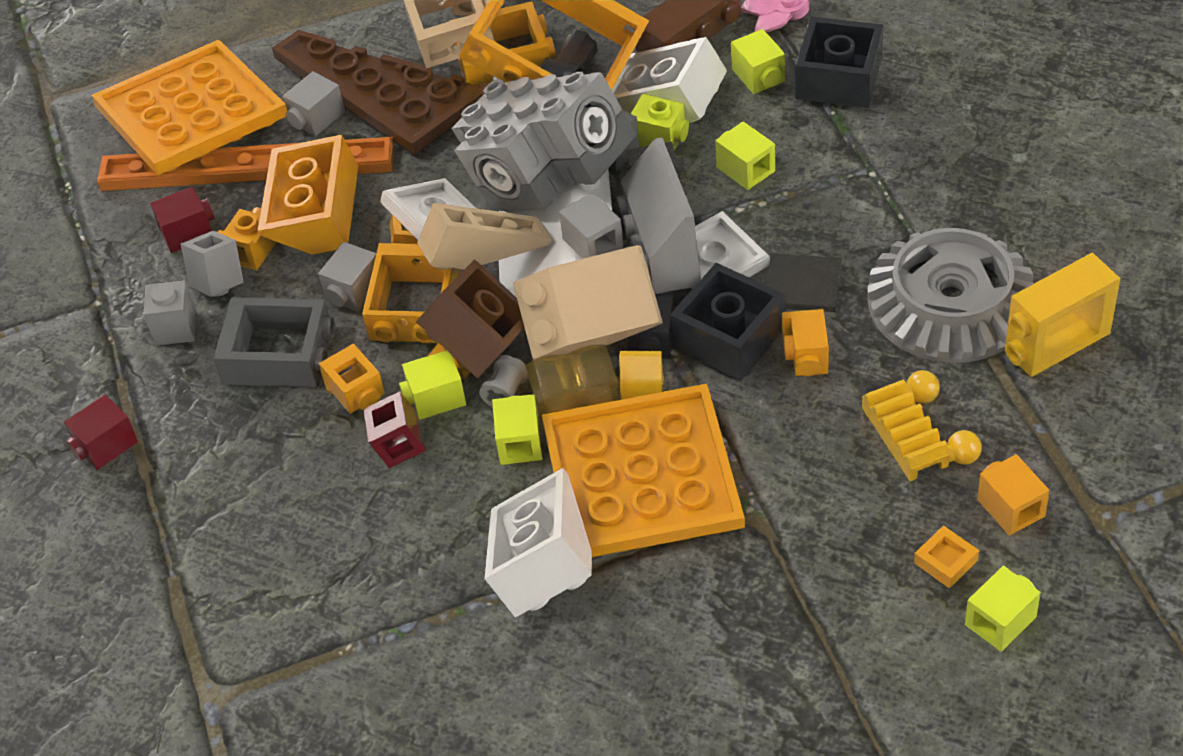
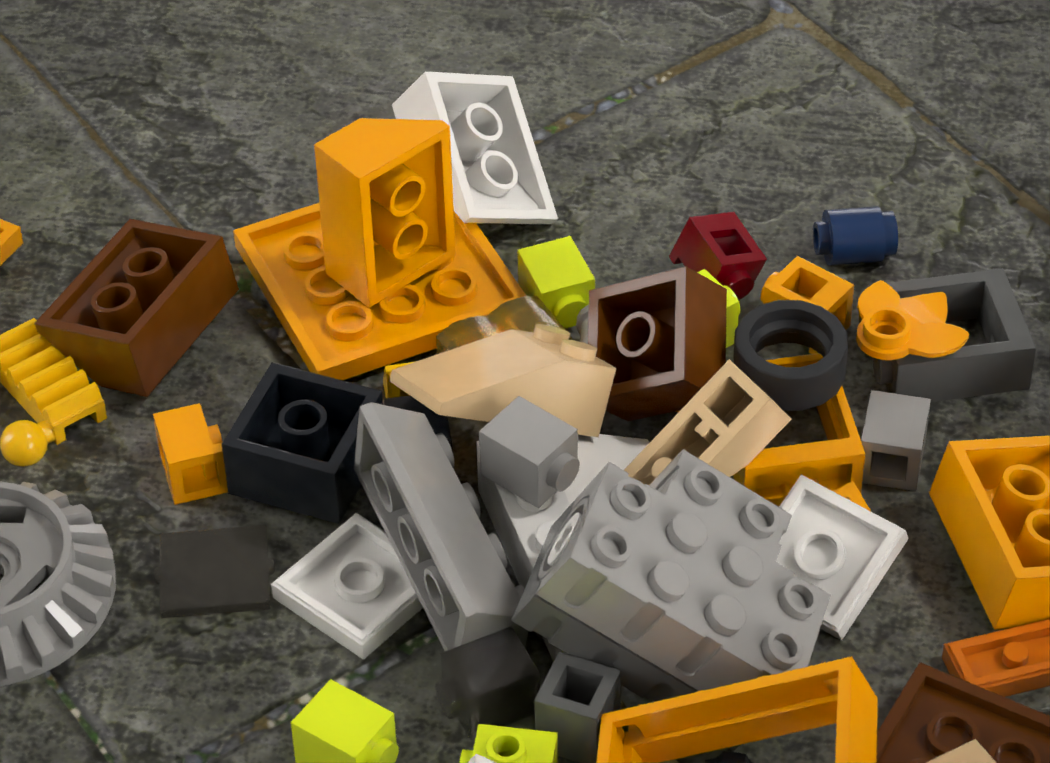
camera: 160 degrees right, 5 degrees down
(288, 434) = (855, 235): none -> dark blue brick
(306, 310) = (905, 326): none -> light orange plate
(391, 269) = (793, 323): none -> black tyre
(628, 417) = (385, 203): none -> light orange slope
(825, 446) = (140, 304): none -> reddish brown slope

